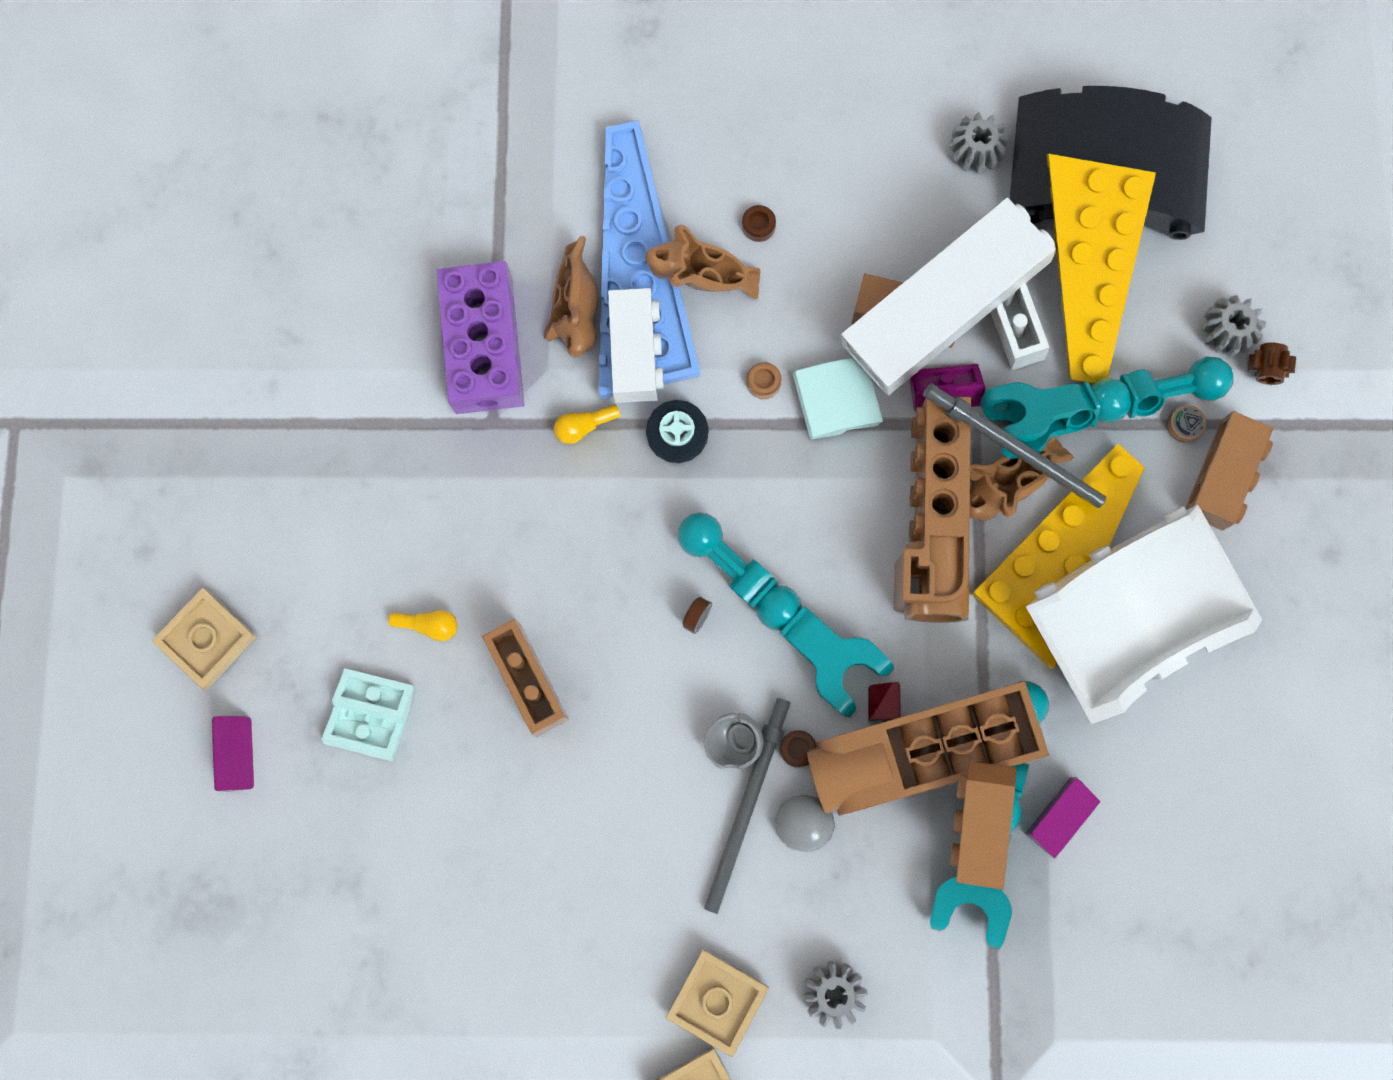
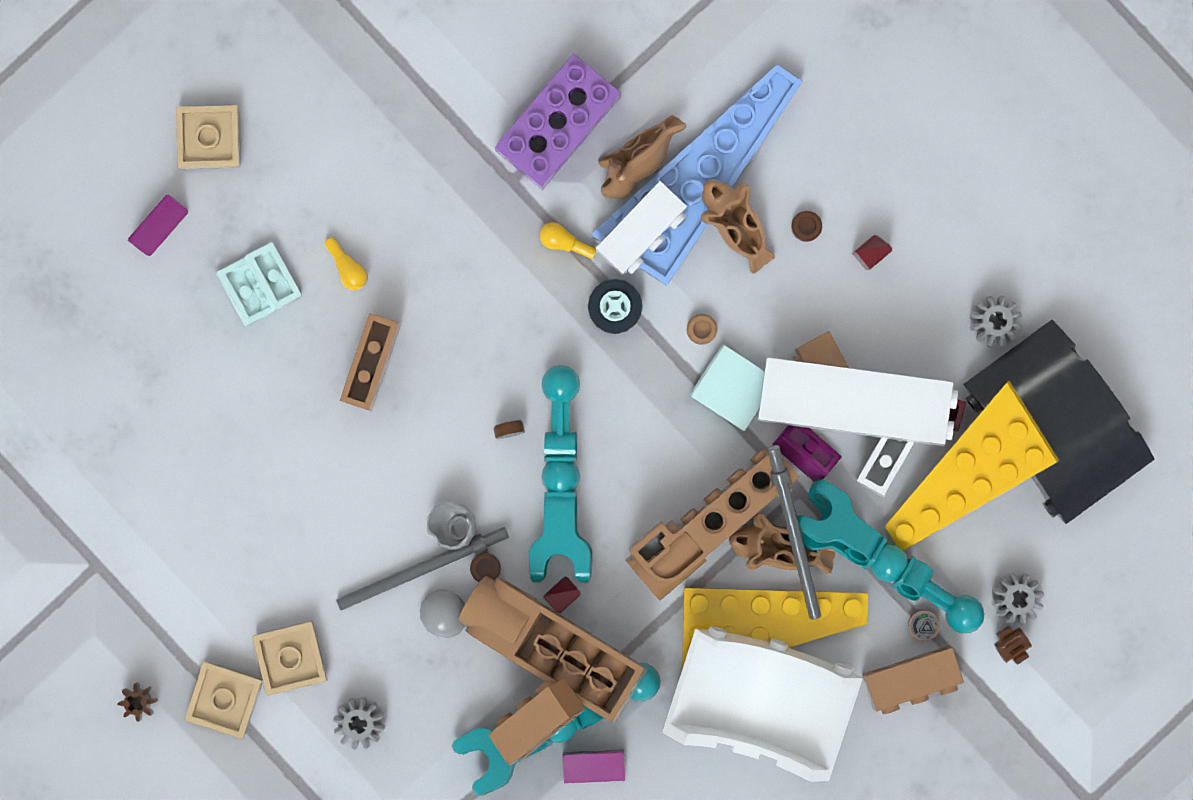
camera: 45 degrees right, 10 degrees up
(830, 189) = (872, 252): none -> dark red slope

